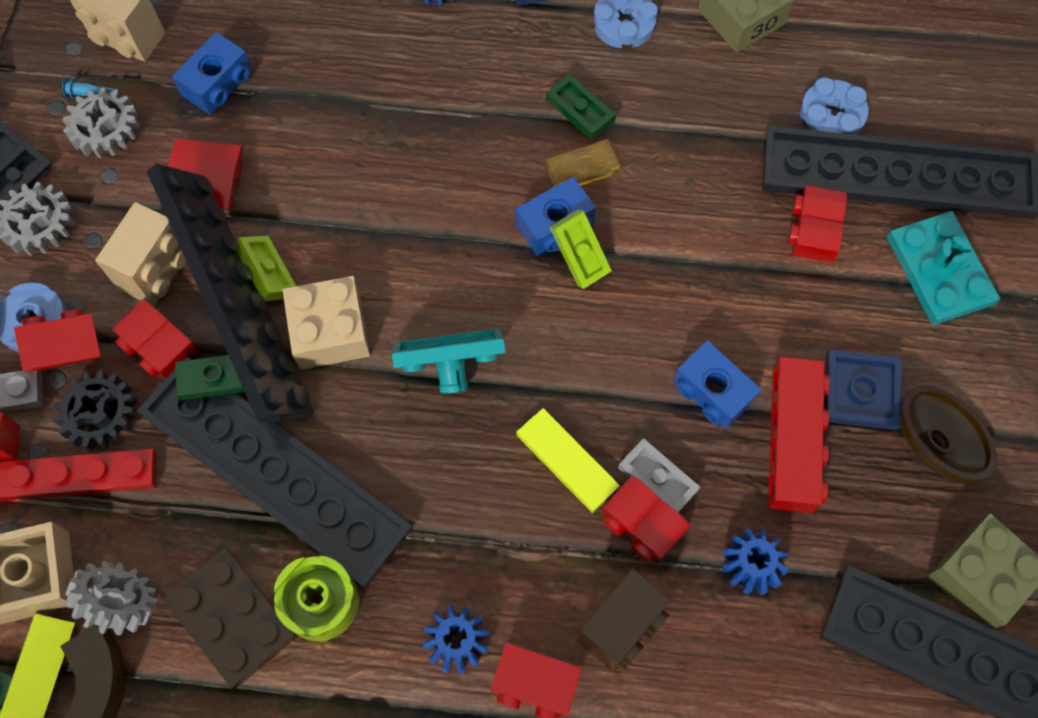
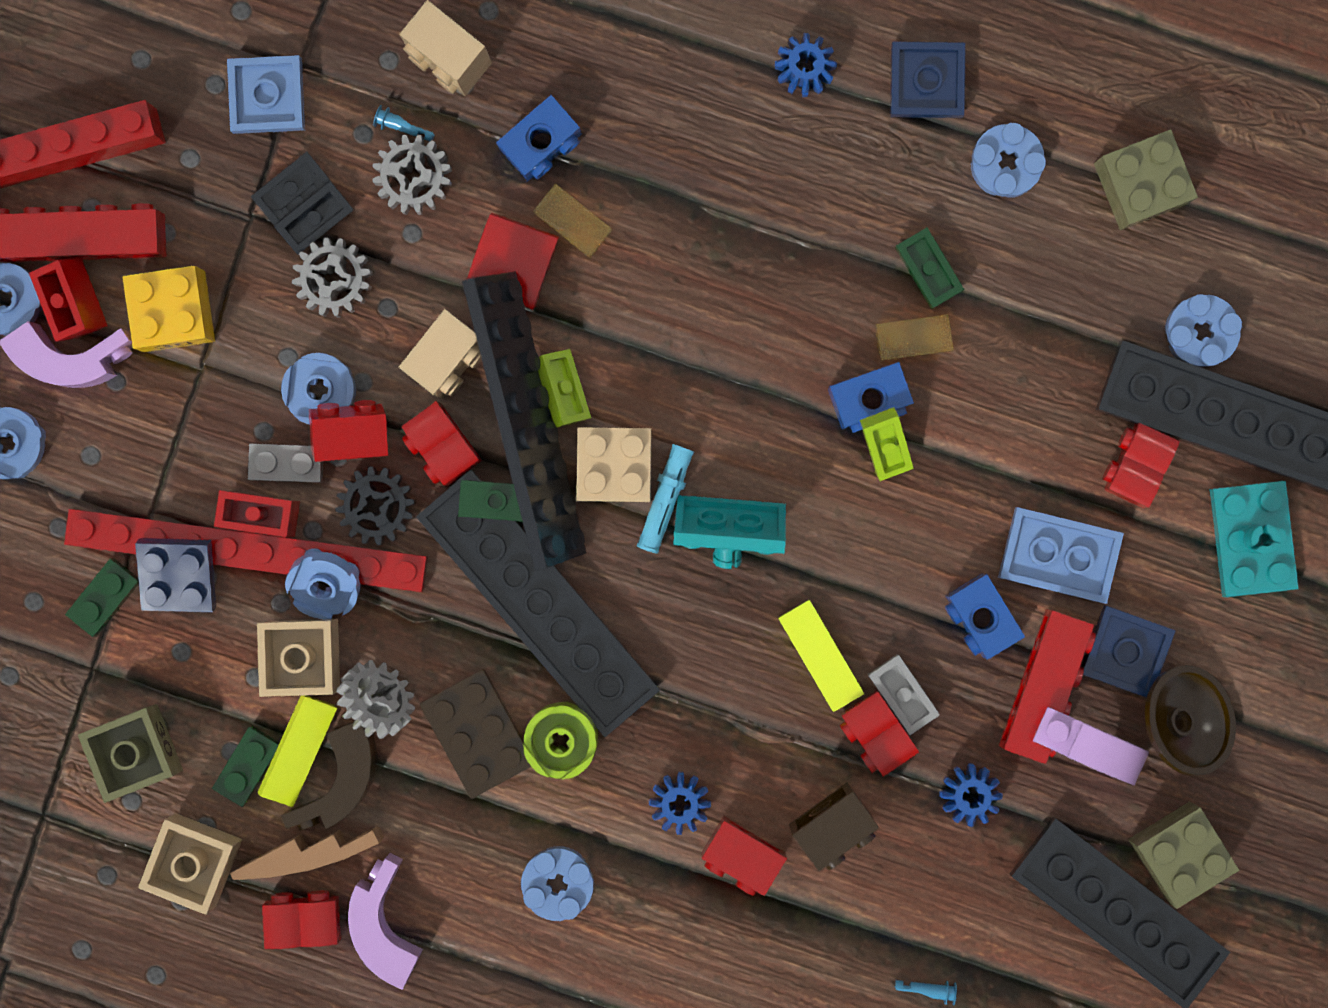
camera: 10 degrees right, 20 degrees up
(49, 472) = (328, 568): none -> medium blue plate
(253, 132) = (572, 221): none -> clear yellow plate
(385, 331) = (667, 493): none -> medium azure pin
(771, 316) = (1060, 555): none -> medium blue plate
(866, 471) = (1091, 746): none -> lavender arch

